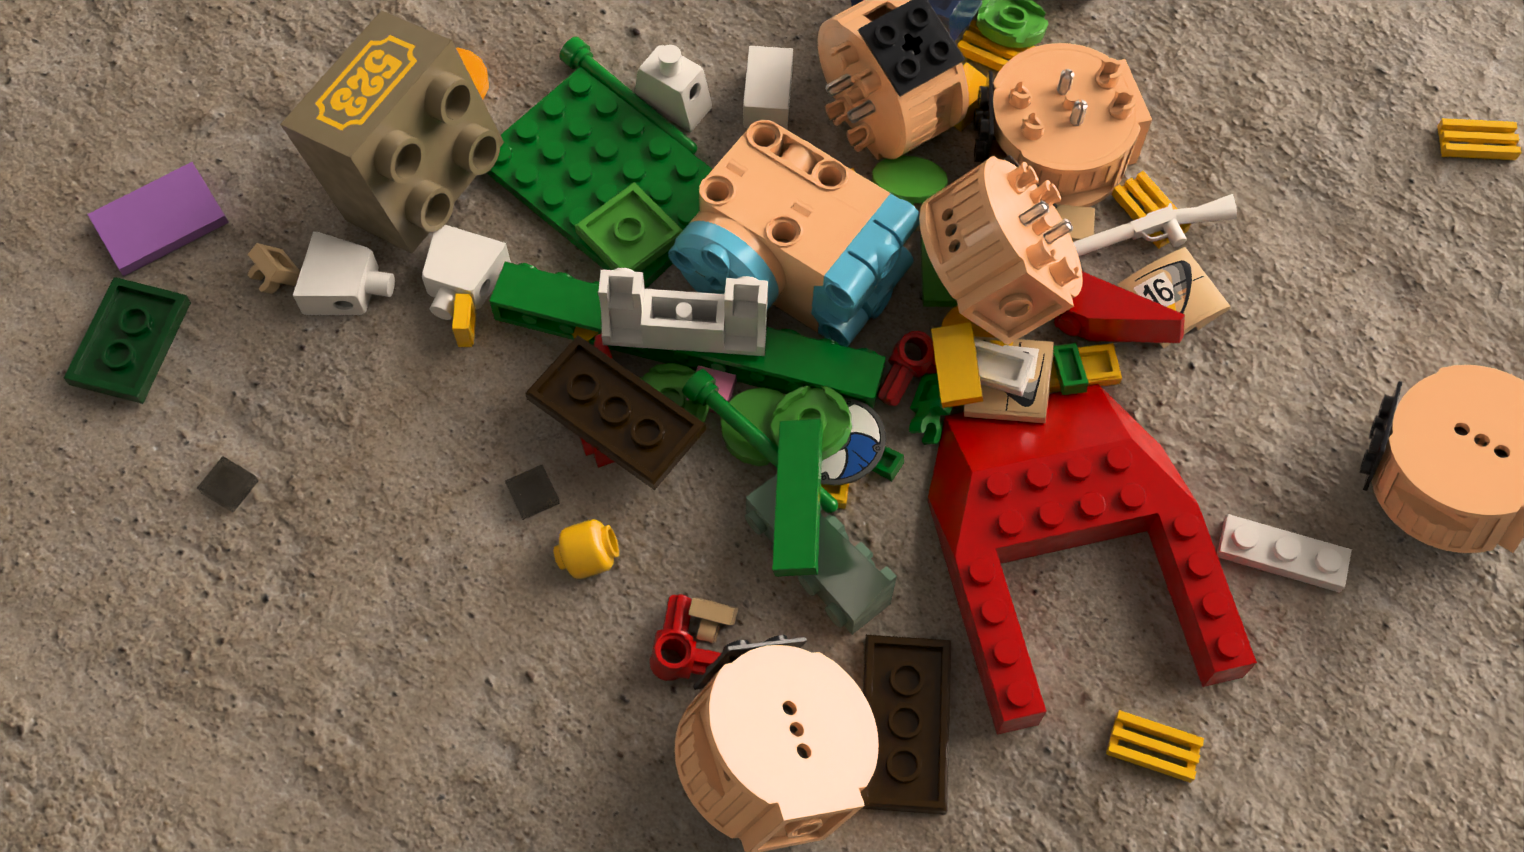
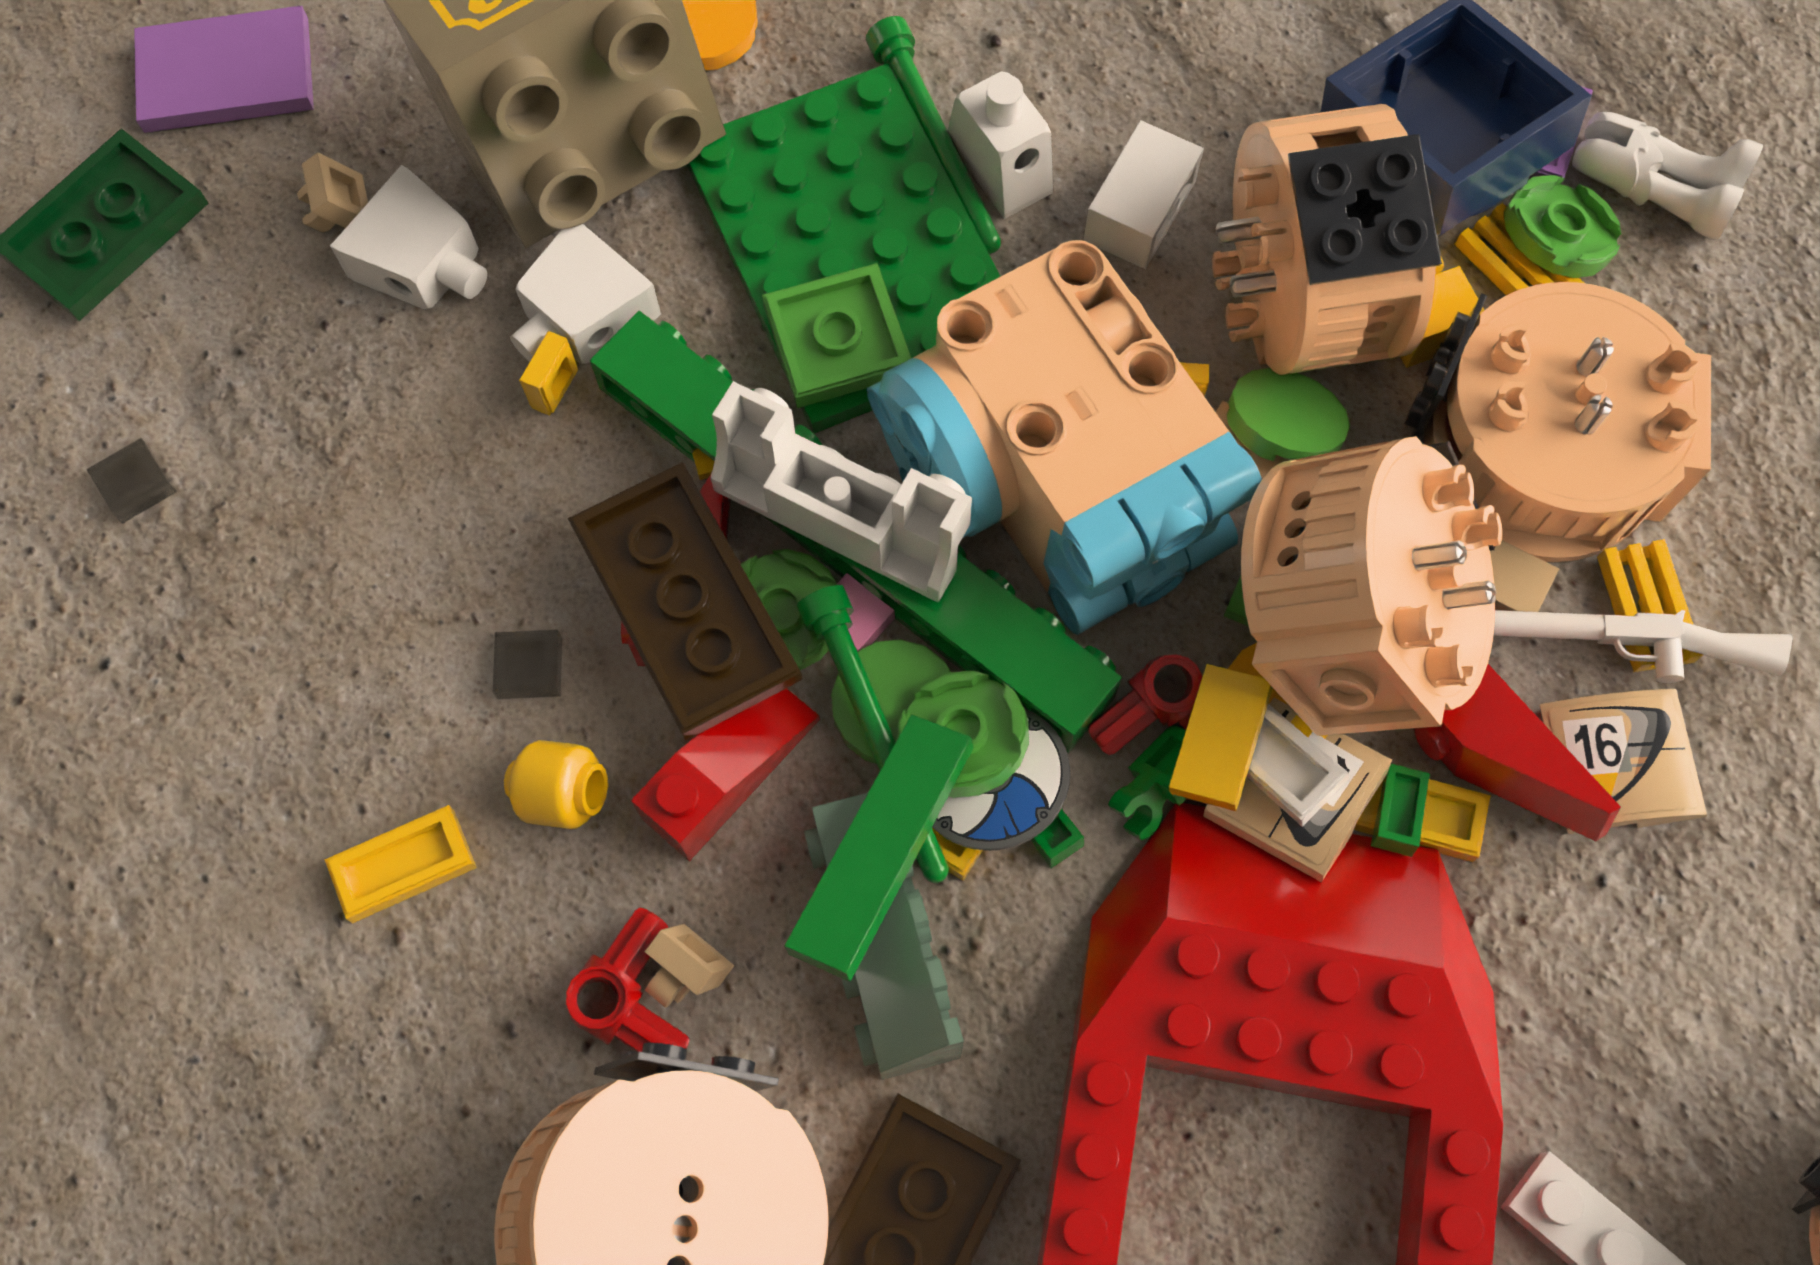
camera: 25 degrees right, 5 degrees up
(512, 634) = (400, 864): none -> yellow tile
(679, 504) = (721, 770): none -> red slope

